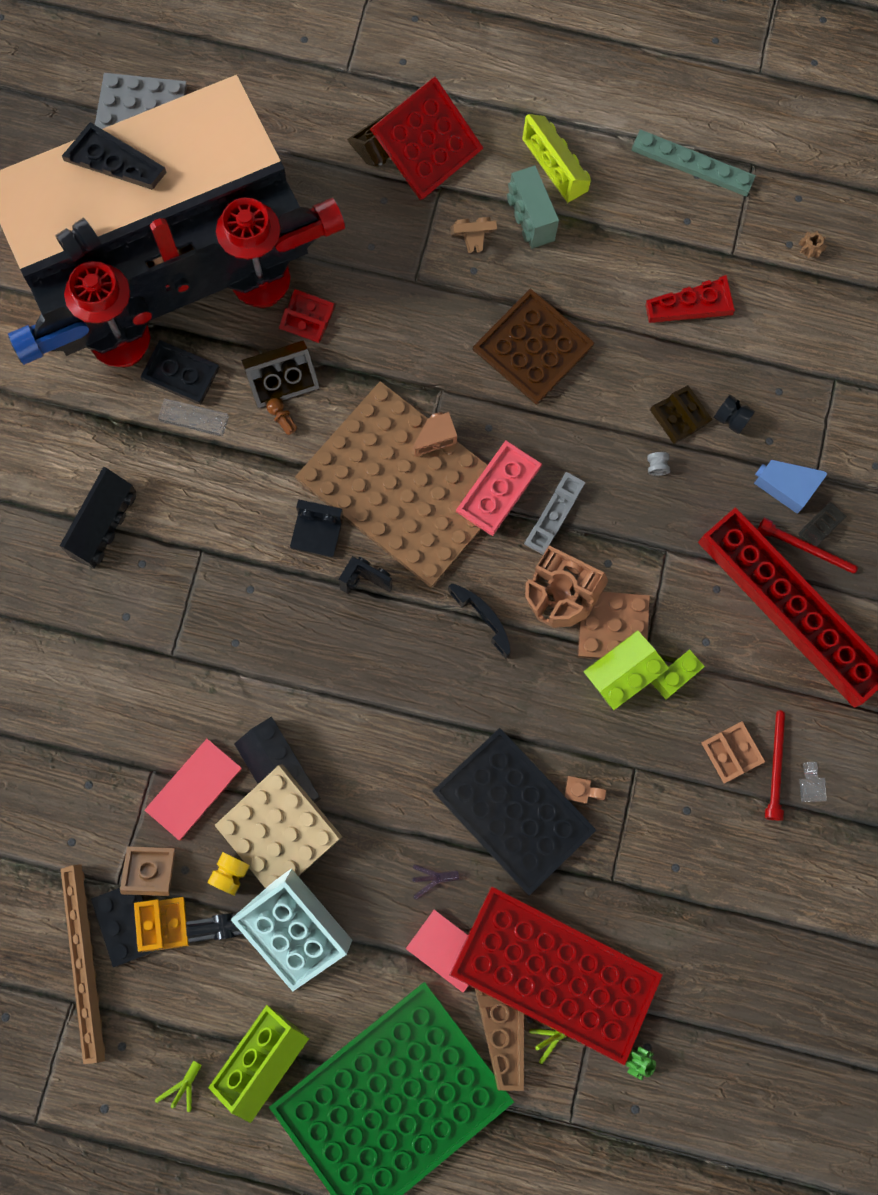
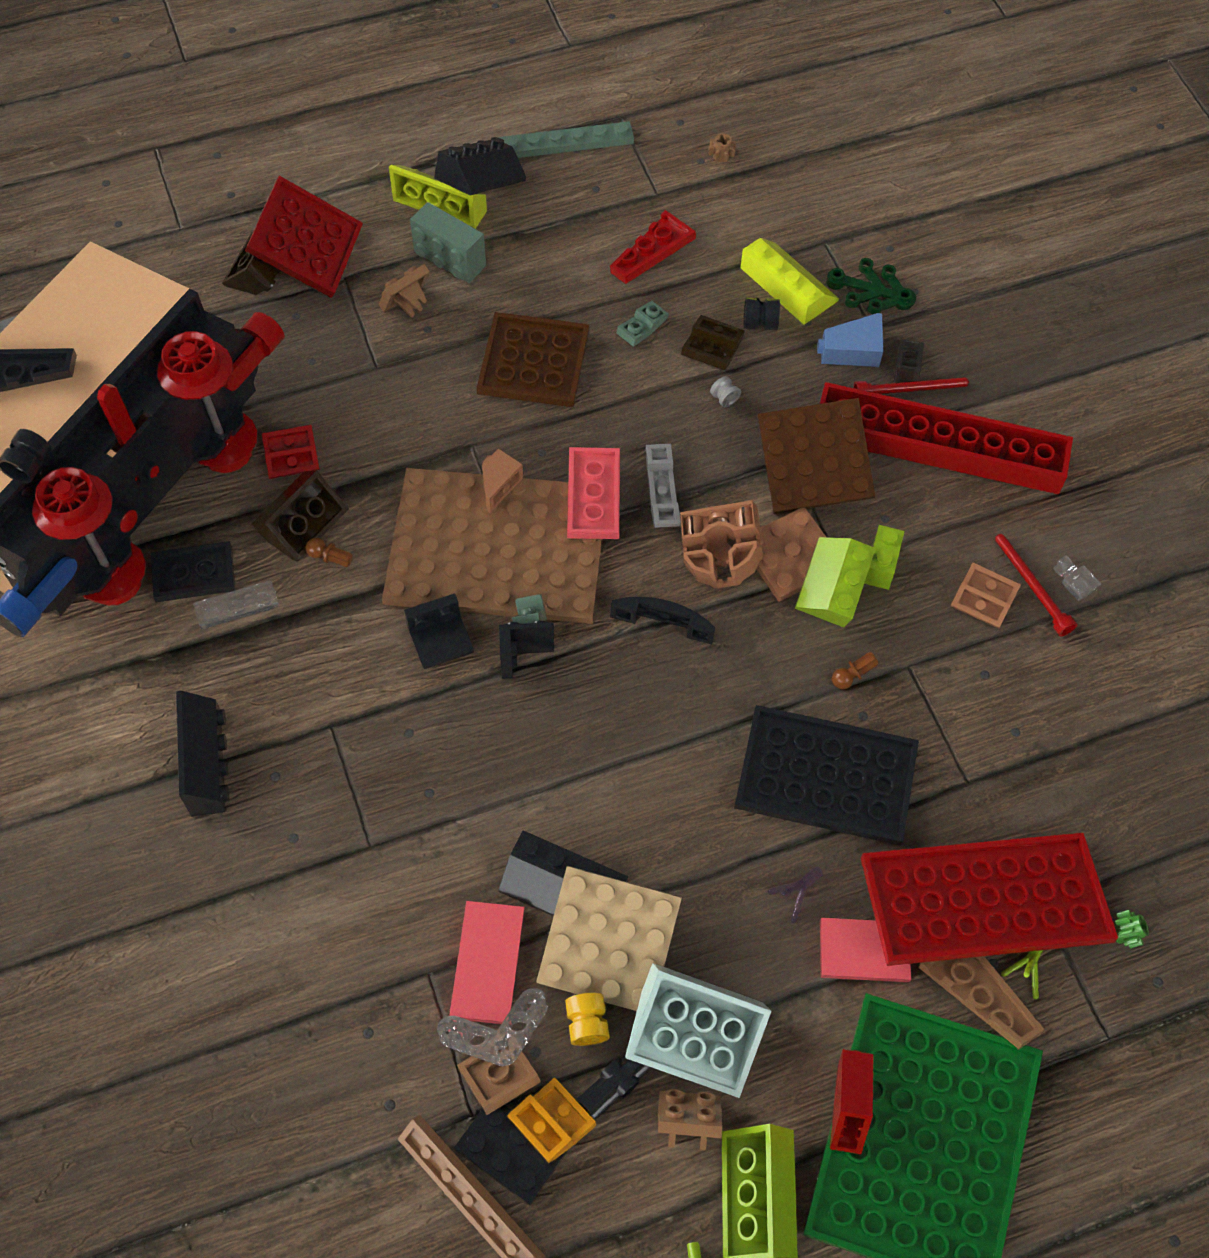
camera: 30 degrees left, 15 degrees down
(160, 848) = (496, 1039): none -> clear beam
(248, 982) = (689, 1115): none -> medium nougat plate
(358, 1048) = (852, 1101): none -> red slope
(388, 555) = (530, 609): none -> sand green bracket
(579, 790) = (875, 716): nougat plate -> none
(580, 746) = (843, 677): none -> dark orange axle
(599, 155) = (479, 166): none -> black slope
(639, 365) = (643, 324): none -> sand green slope
(684, 562) = (816, 455): none -> reddish brown plate
(779, 395) = (786, 280): none -> neon yellow slope
(842, 445) = (898, 296): none -> dark green plant

